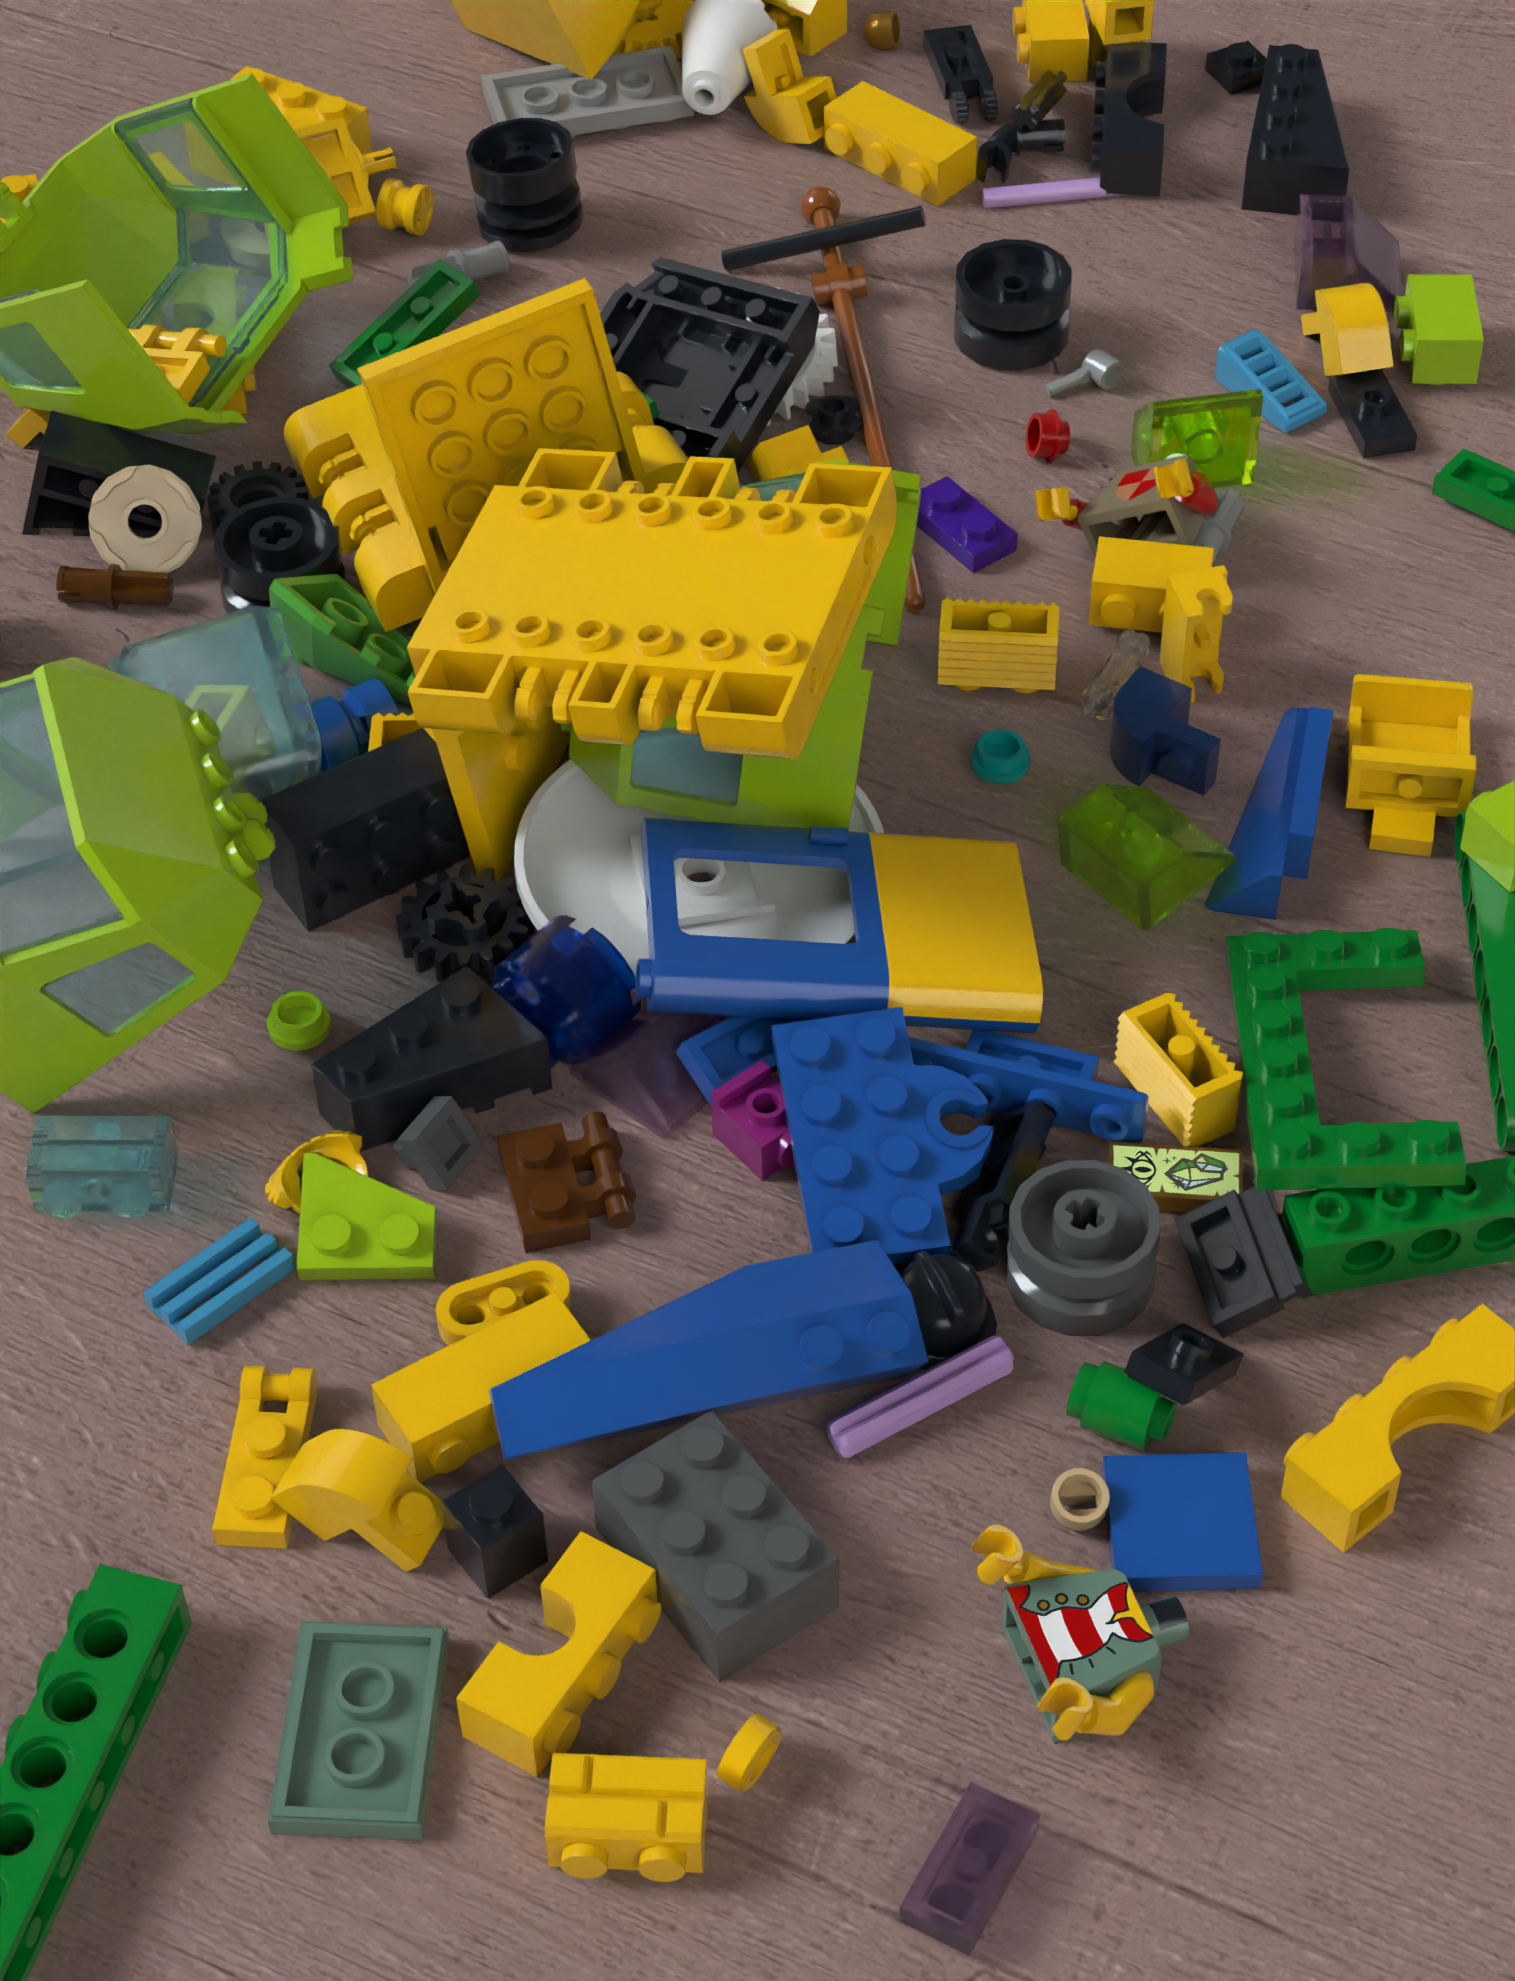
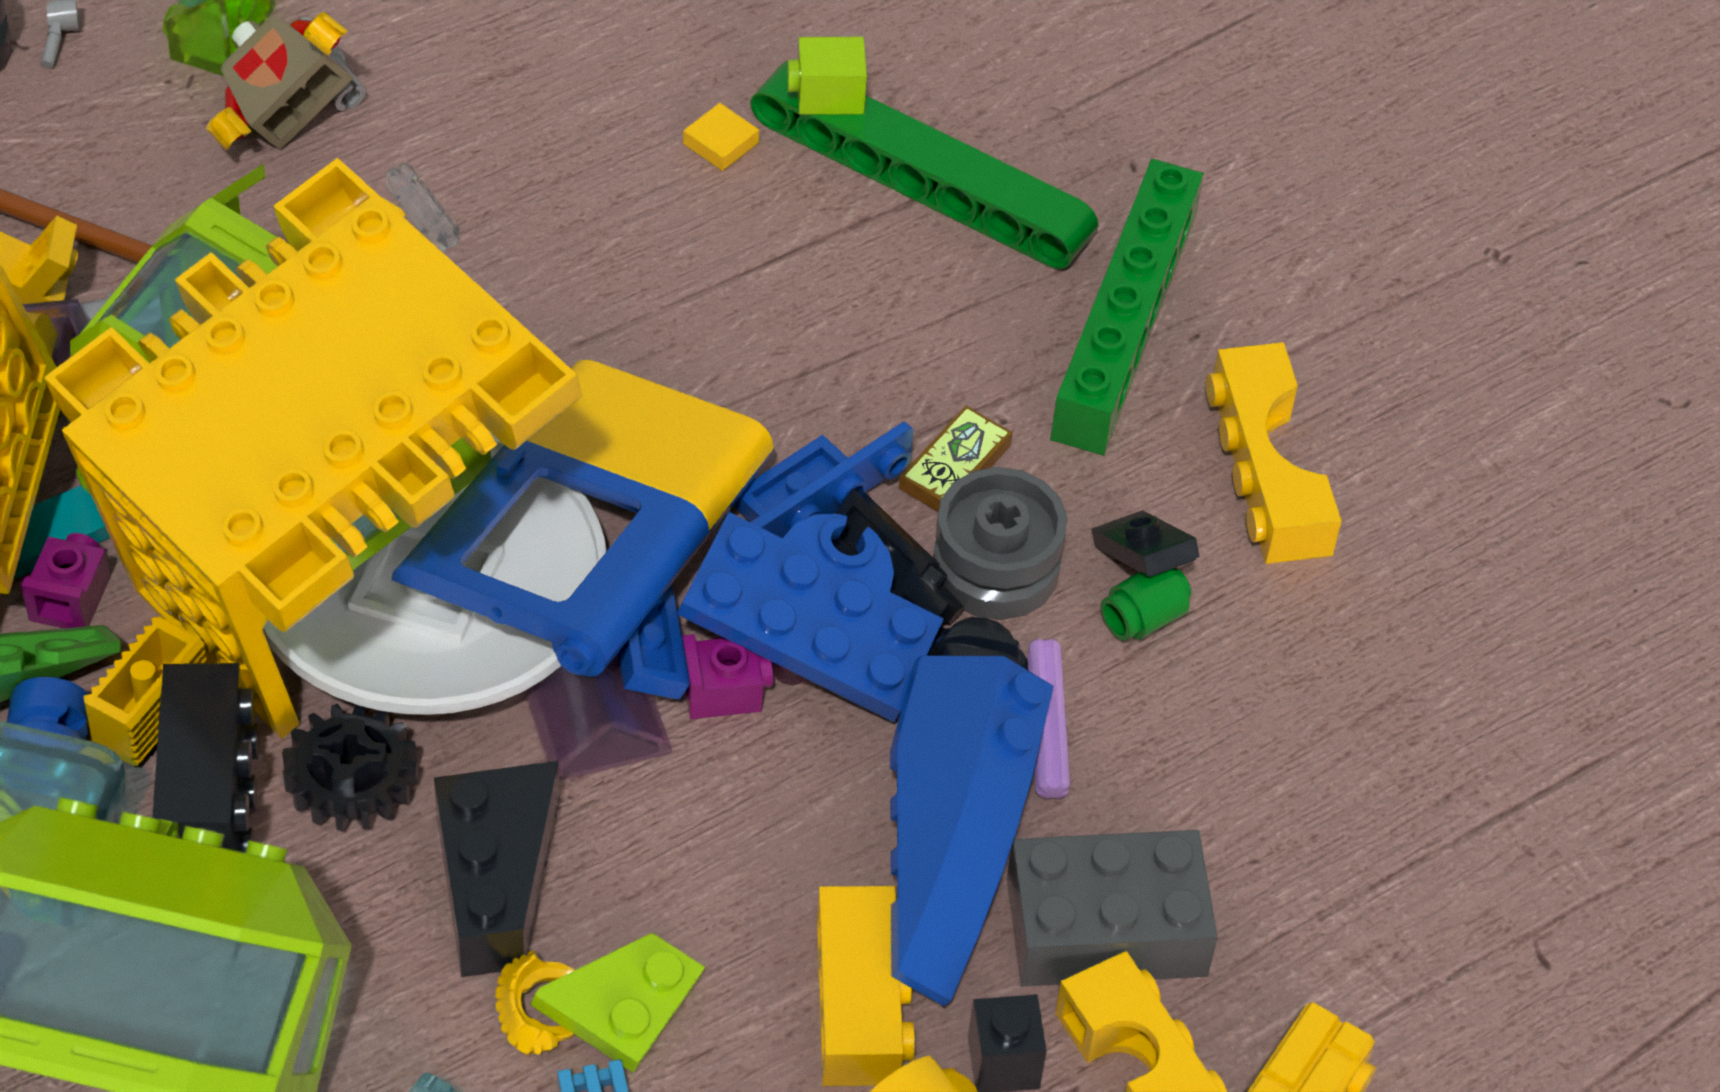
camera: 65 degrees left, 5 degrees up
(298, 1021) = (367, 936): lime plate -> none
(439, 1143) = (583, 901): dark grey tile -> none
(497, 1296) = (780, 941): yellow plate -> none
(545, 1186) = (672, 853): reddish brown plate -> none
(569, 988) = (508, 717): clear blue brick -> none
(749, 1753) = (1298, 980): yellow tile -> none
(963, 525) = (151, 203): dark purple plate -> none
(969, 1868) = (1467, 900): clear purple plate -> none
(1047, 435) = (112, 93): red plate -> none
(1076, 1488) = (1222, 677): tan hinge -> none
(1079, 1636) = (1337, 736): torso -> none
(1132, 580) = (365, 124): yellow brick -> none
(1138, 851) = (636, 299): clear neon green slope -> none
(1155, 736) = (516, 225): dark blue brick -> none
(1178, 1070) = (879, 392): yellow brick -> none
(1182, 1521) = (1257, 628): blue tile -> none
(1194, 625) = (450, 129): yellow hinge -> none
(1242, 1258) = (1073, 455): black plate -> none
(1277, 1077) = (1032, 368): green plate -> none
(1278, 818) = (654, 192): blue wedge -> none
(1409, 745) = (660, 86): yellow panel -> none

